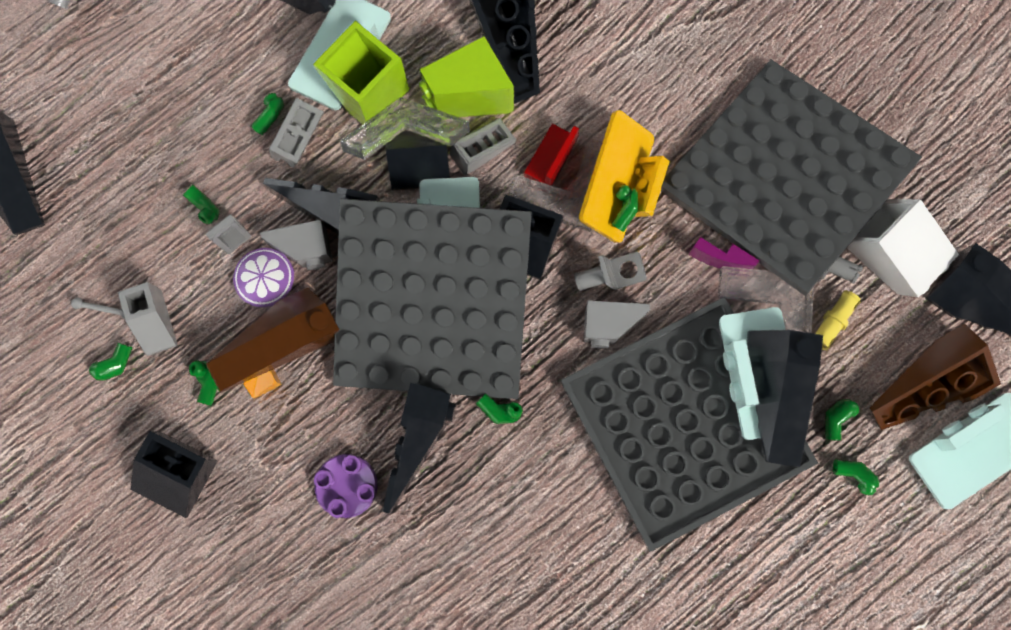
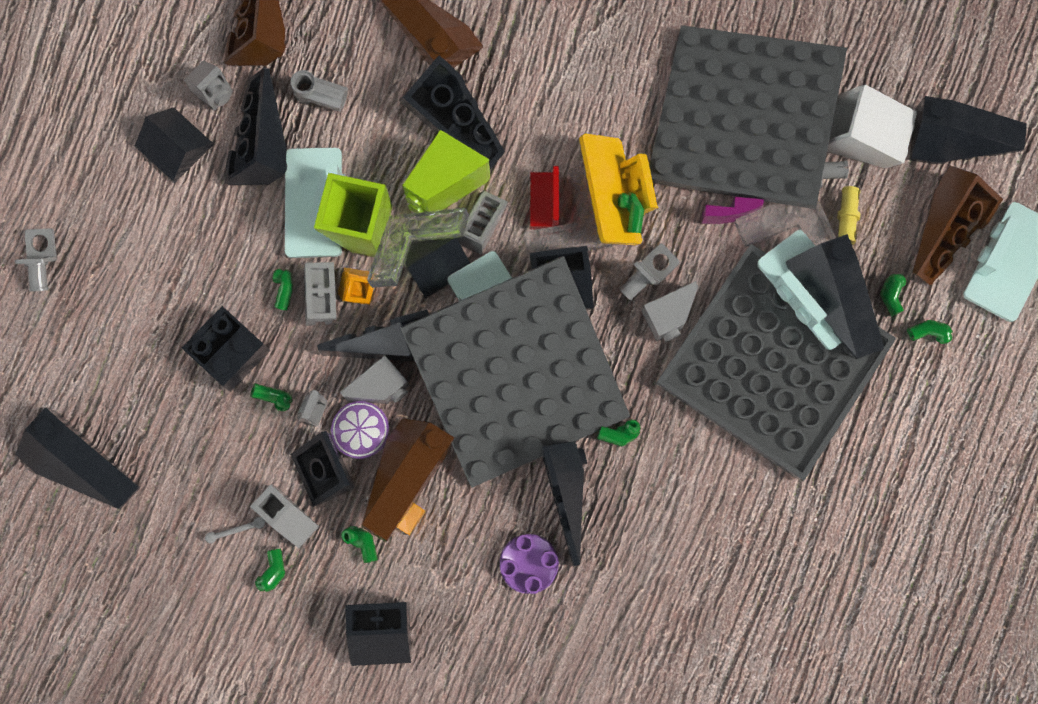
camera: 30 degrees left, 0 degrees up
(184, 140) = (226, 349): none -> black slope
(210, 295) = (322, 469): none -> black slope
(330, 146) = (355, 286): none -> light orange slope

